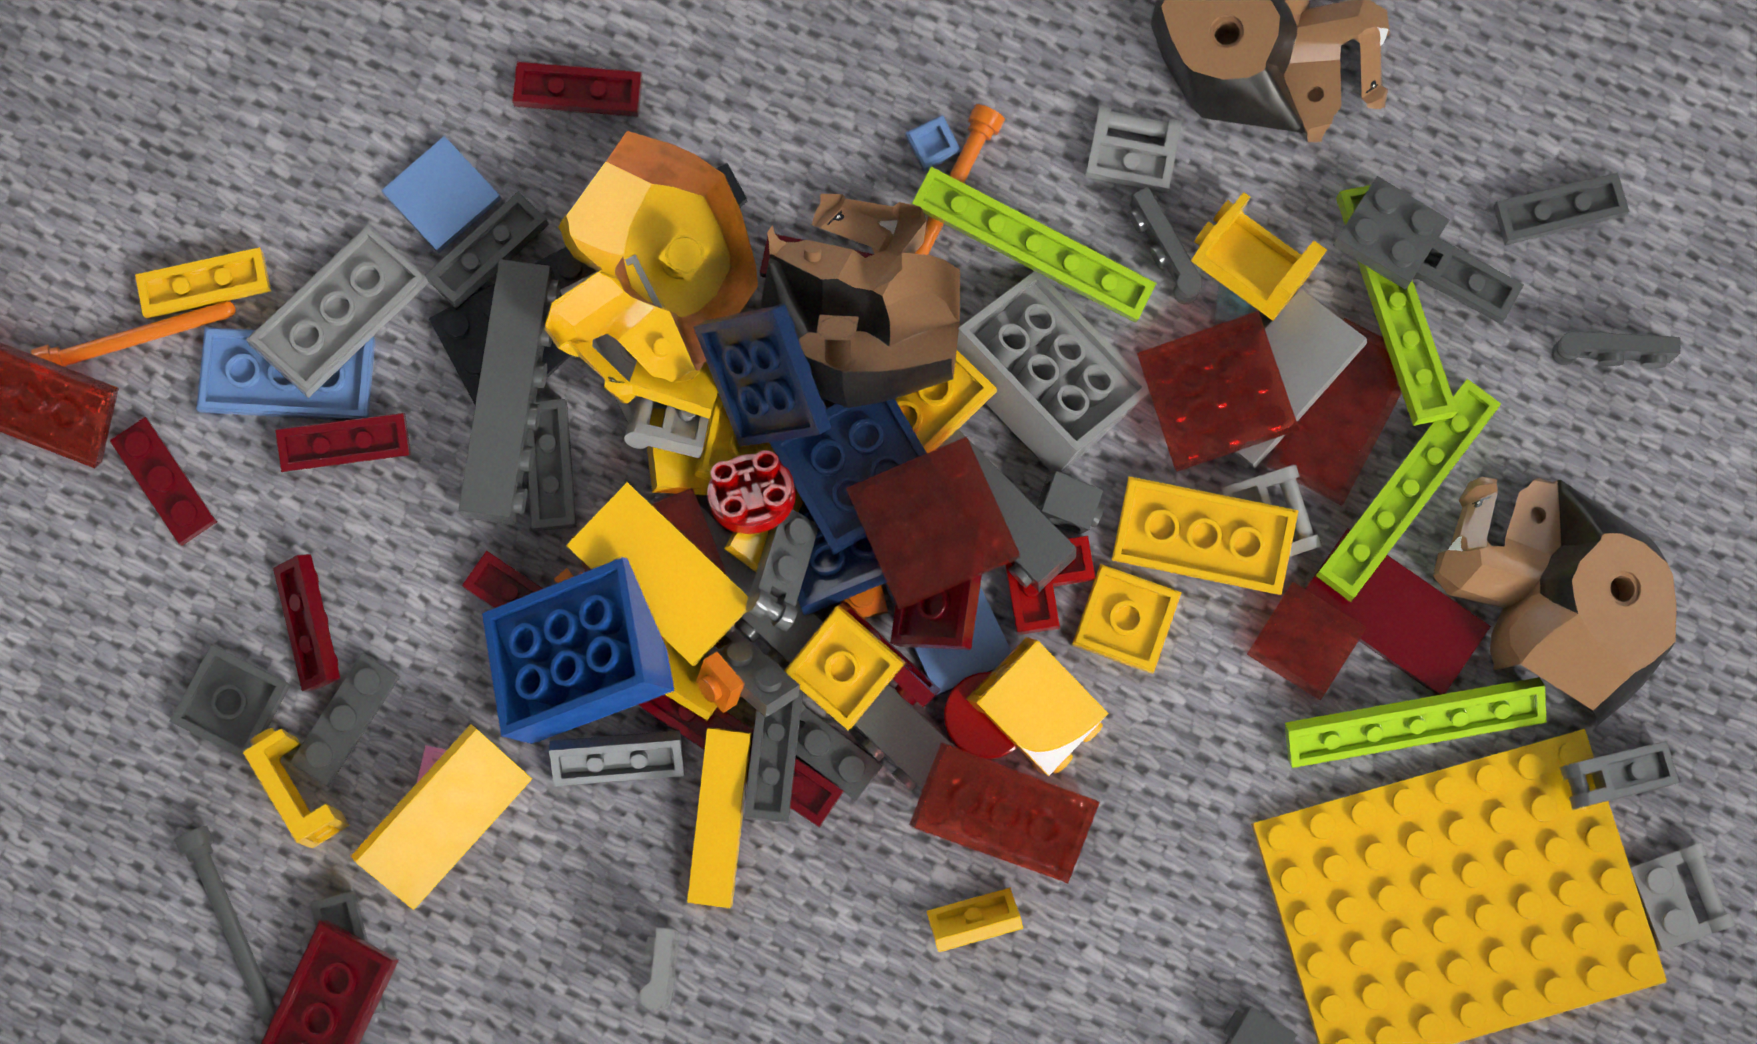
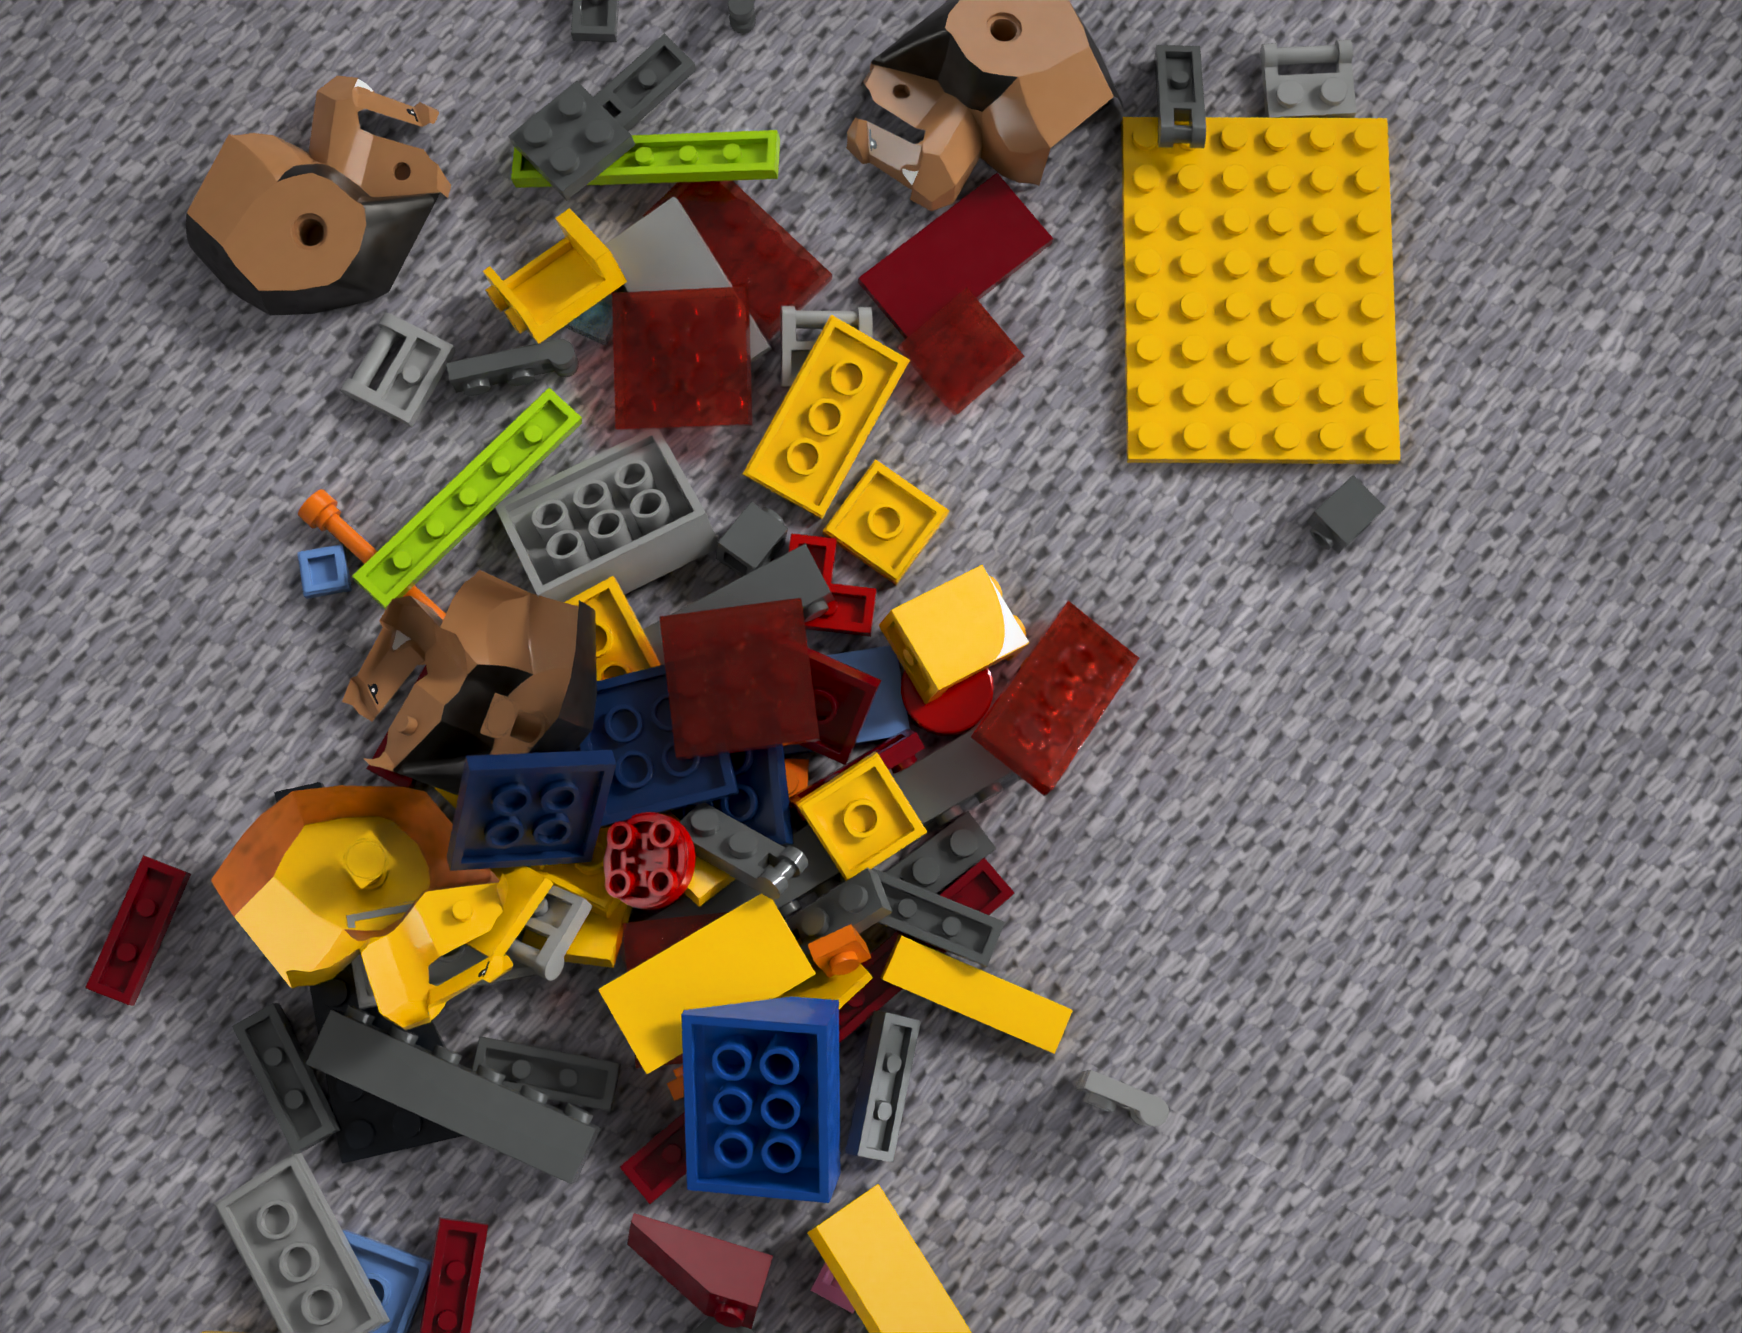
camera: 75 degrees left, 0 degrees up
(416, 658) = (708, 1271): none -> dark red slope
(441, 194) = (206, 1113): medium blue tile -> none
(974, 919) = (1152, 762): yellow plate -> none
(1407, 492) = (843, 210): lime plate -> none
(1415, 722) = (1072, 273): lime plate -> none

